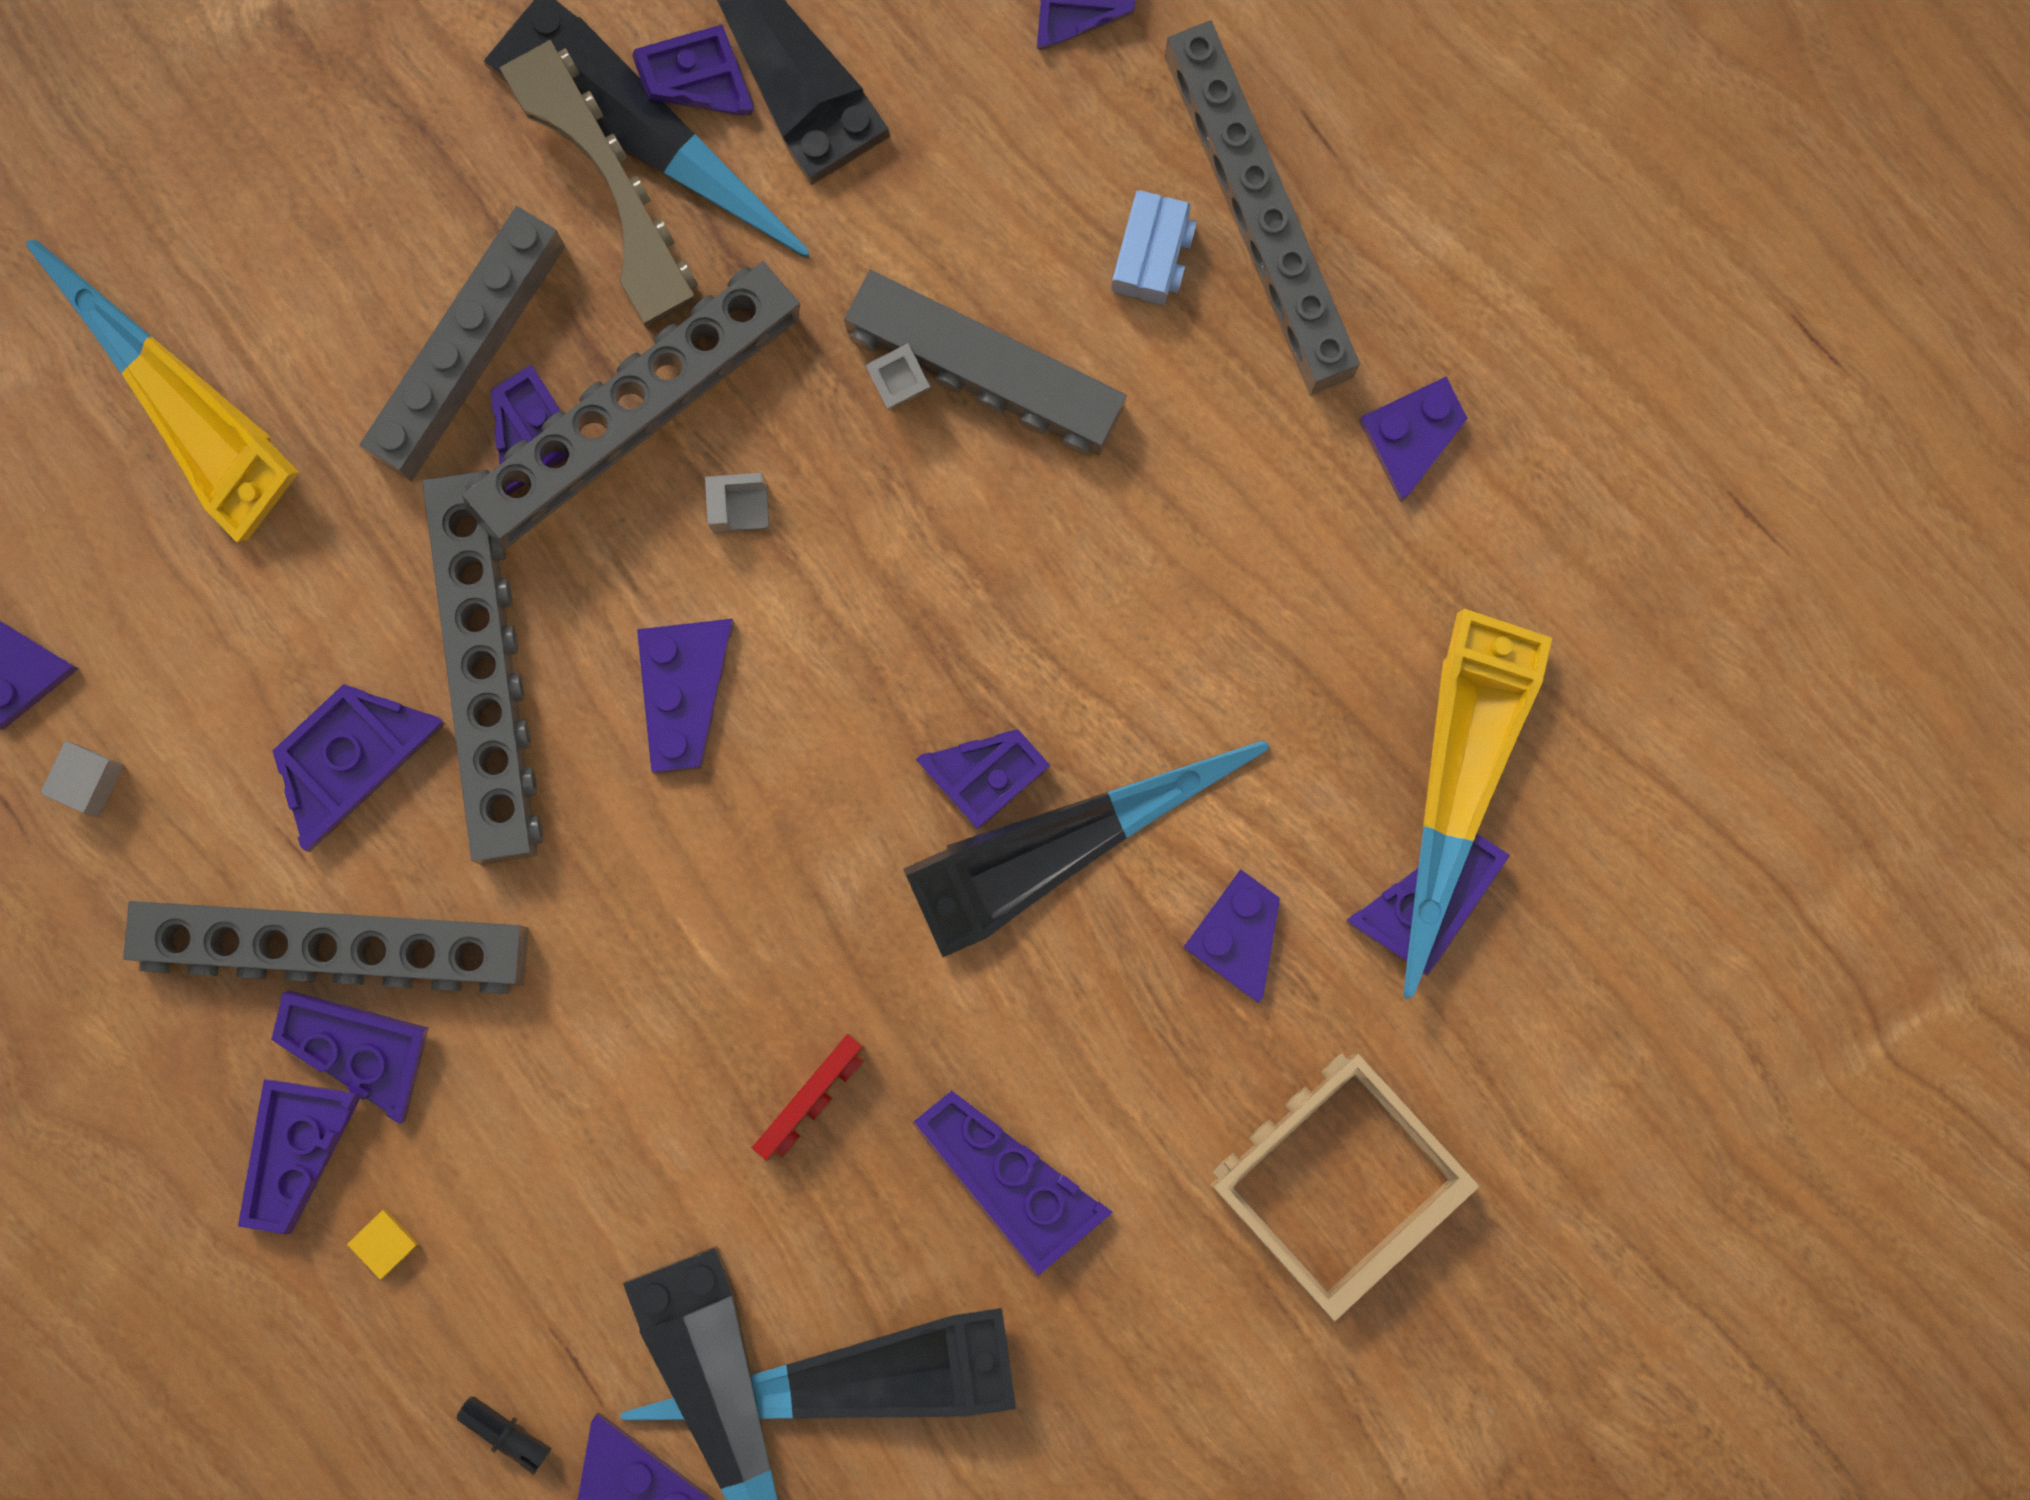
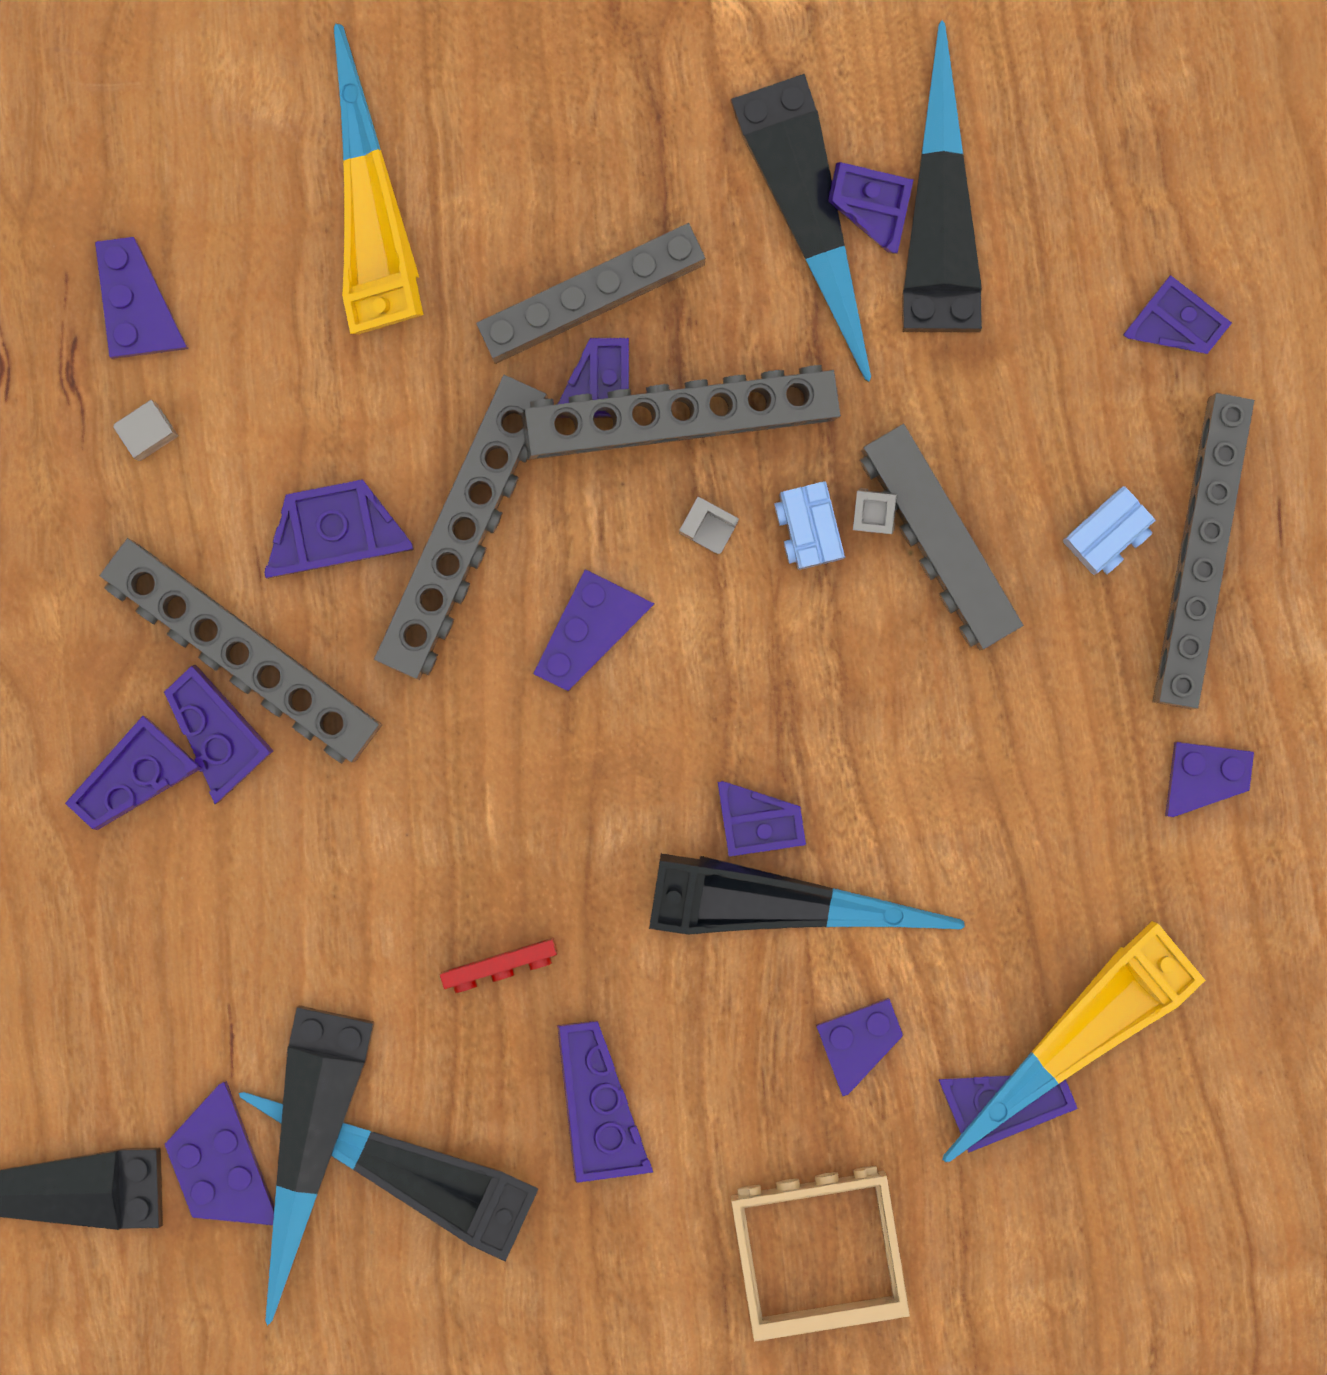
camera: 35 degrees right, 5 degrees up
(383, 1244) = (153, 876): yellow tile -> none
(503, 1434) = (155, 1055): black axle -> none
(551, 98) = (760, 159): dark tan arch -> none
(842, 436) = (810, 526): none -> light blue brick

